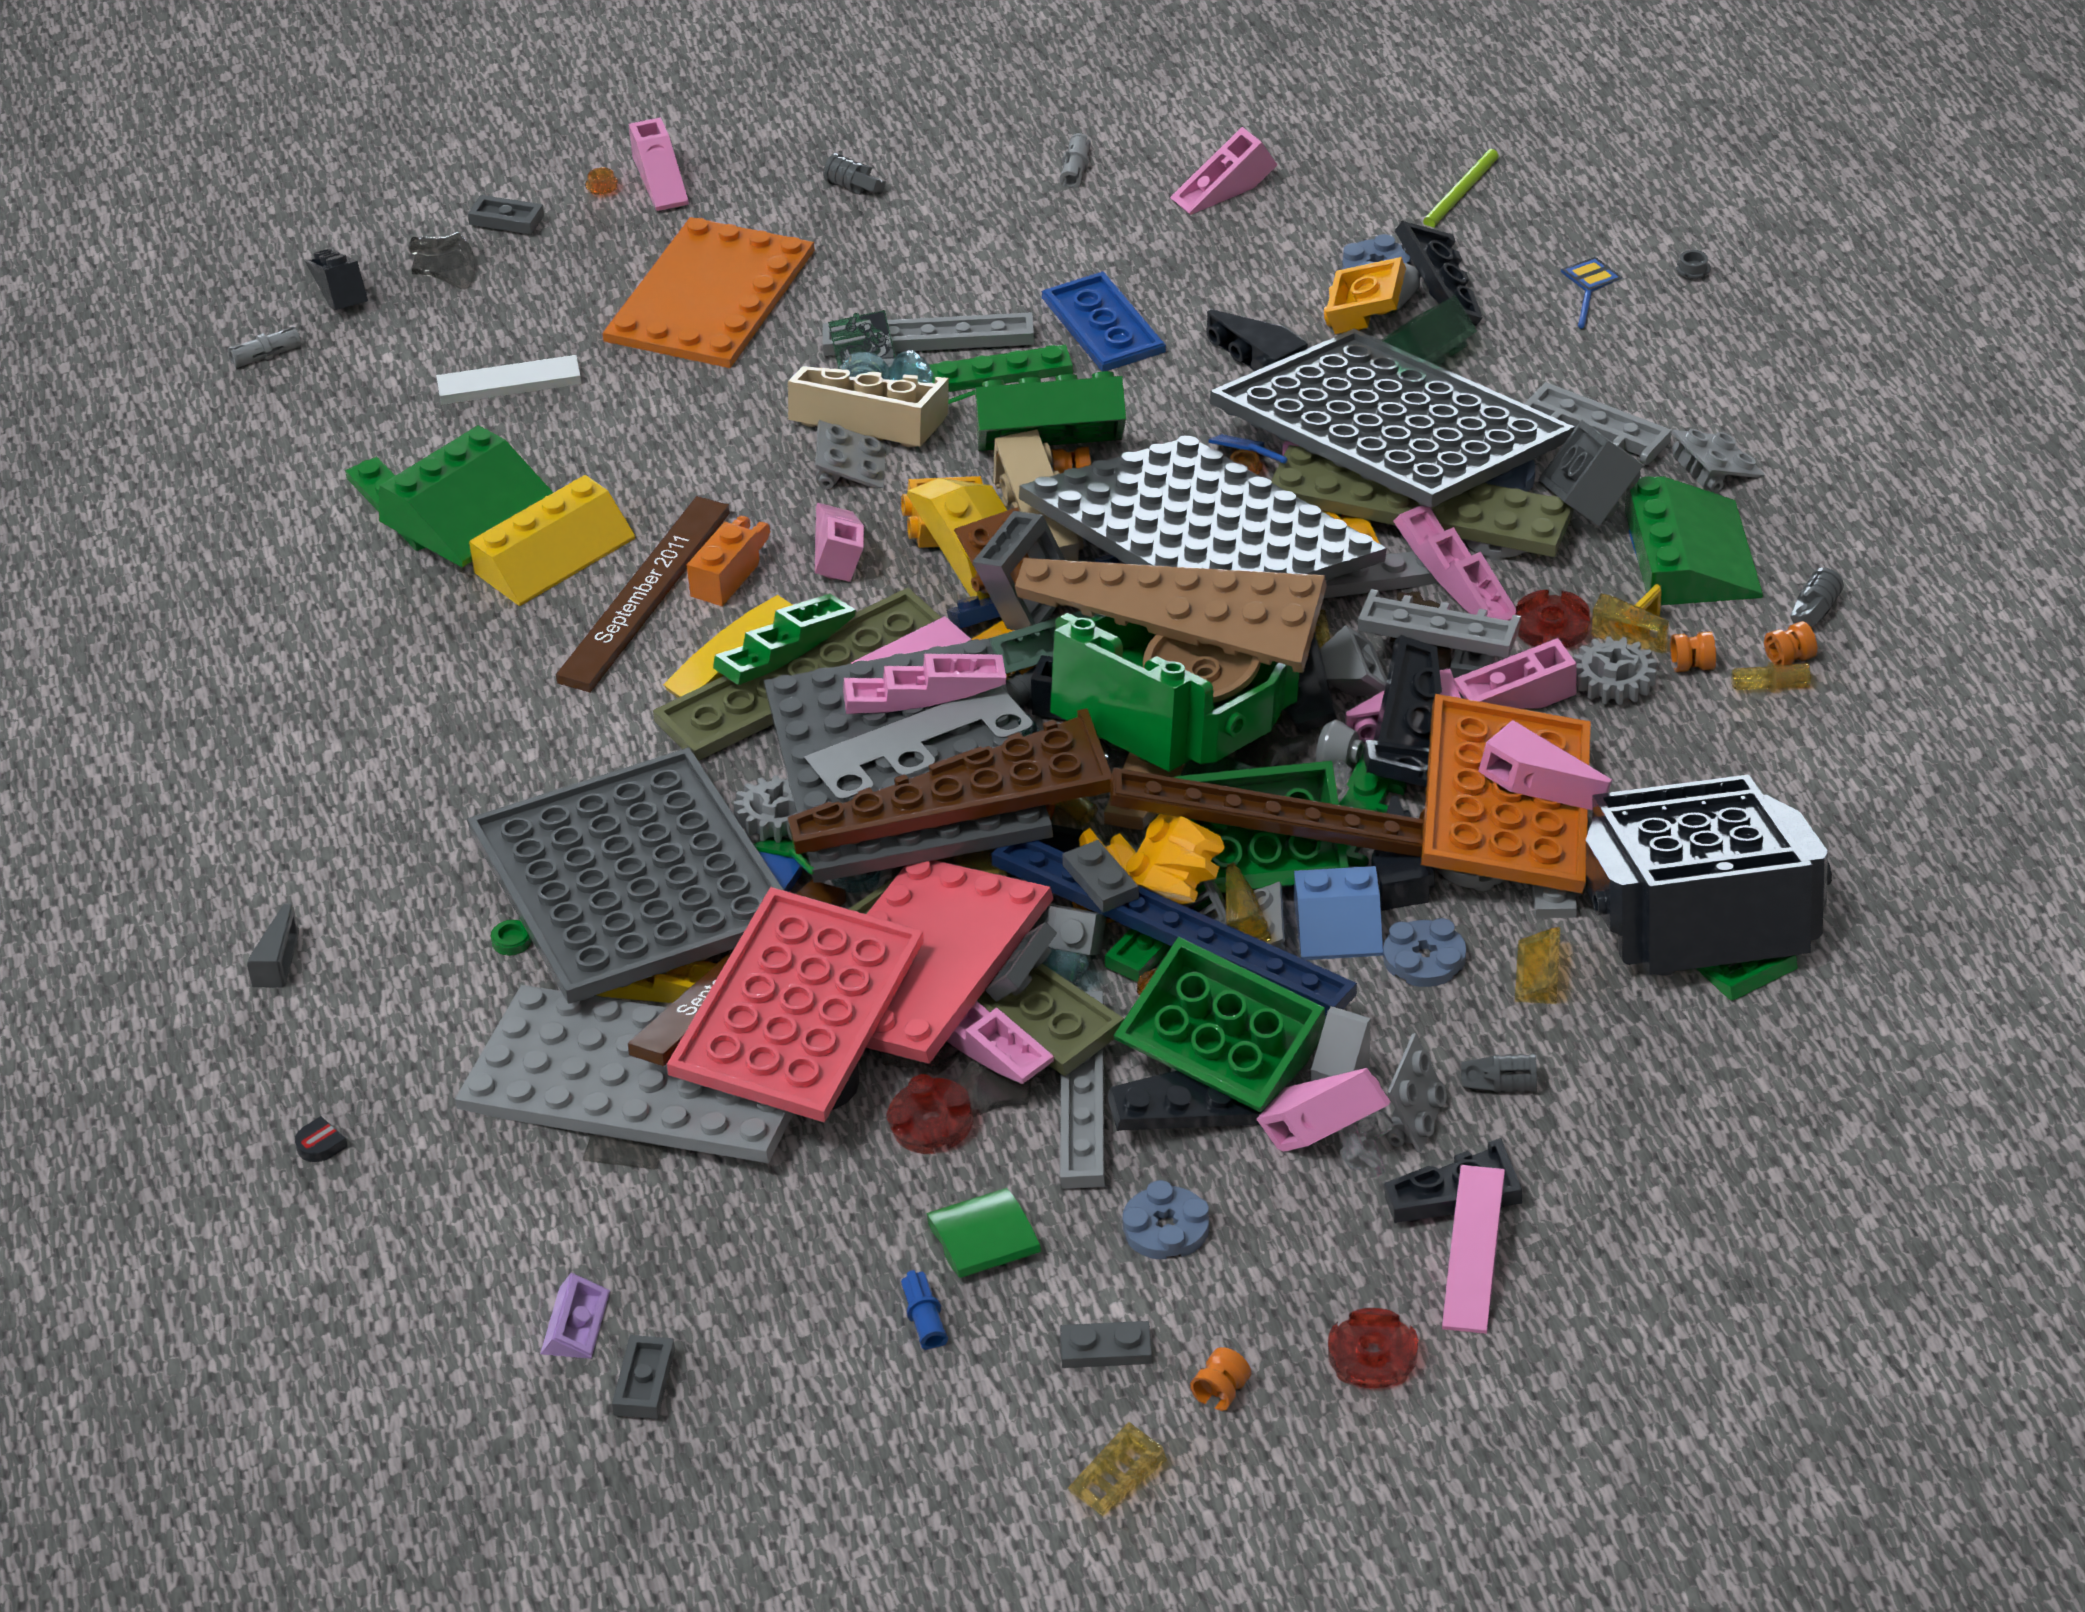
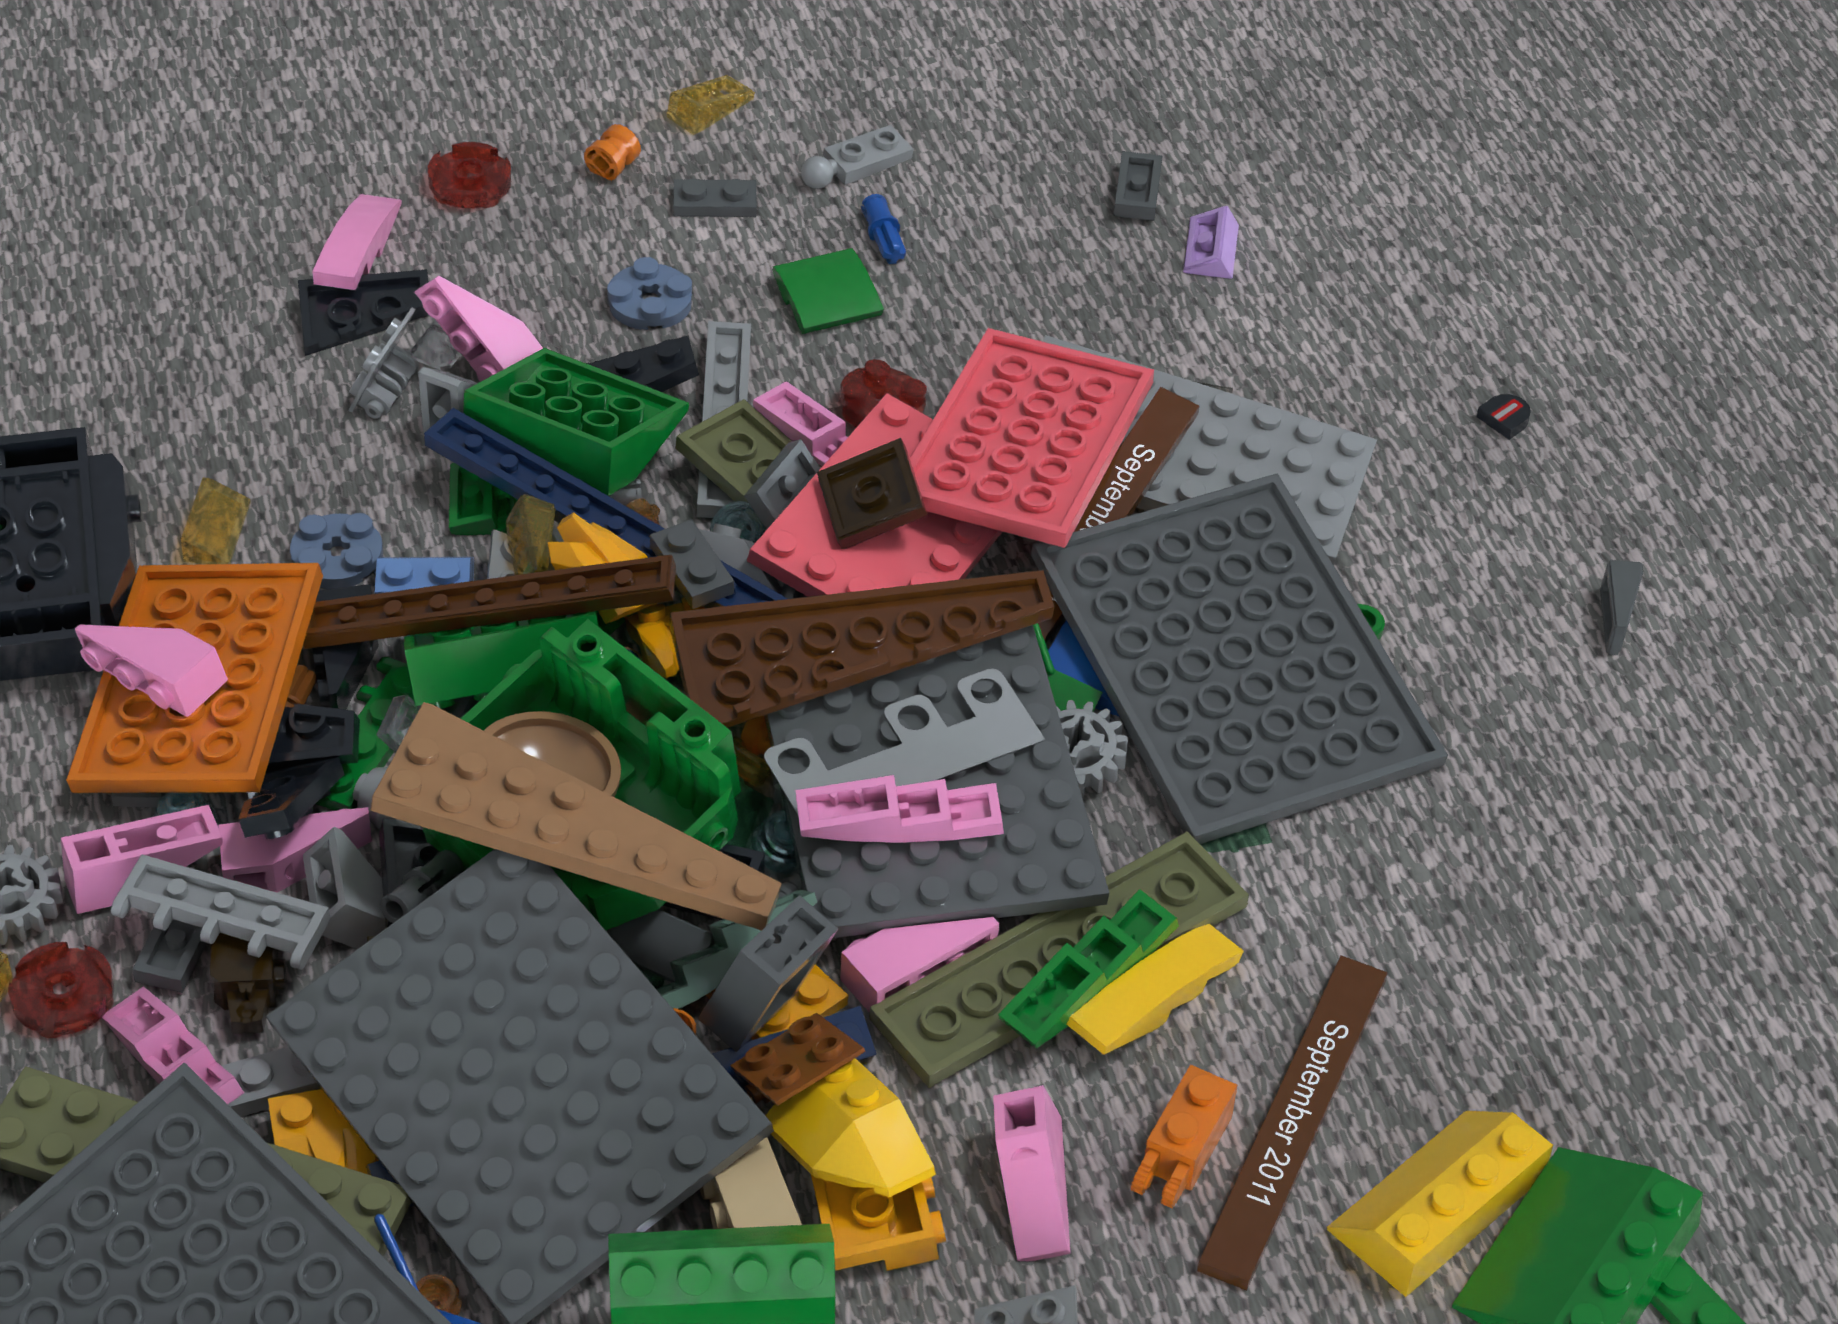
camera: 175 degrees right, 5 degrees up
(941, 925) = (871, 493): none -> dark brown tile
(950, 1400) = (857, 158): none -> light grey plate
(1485, 1073) = (284, 408): dark grey hinge -> none

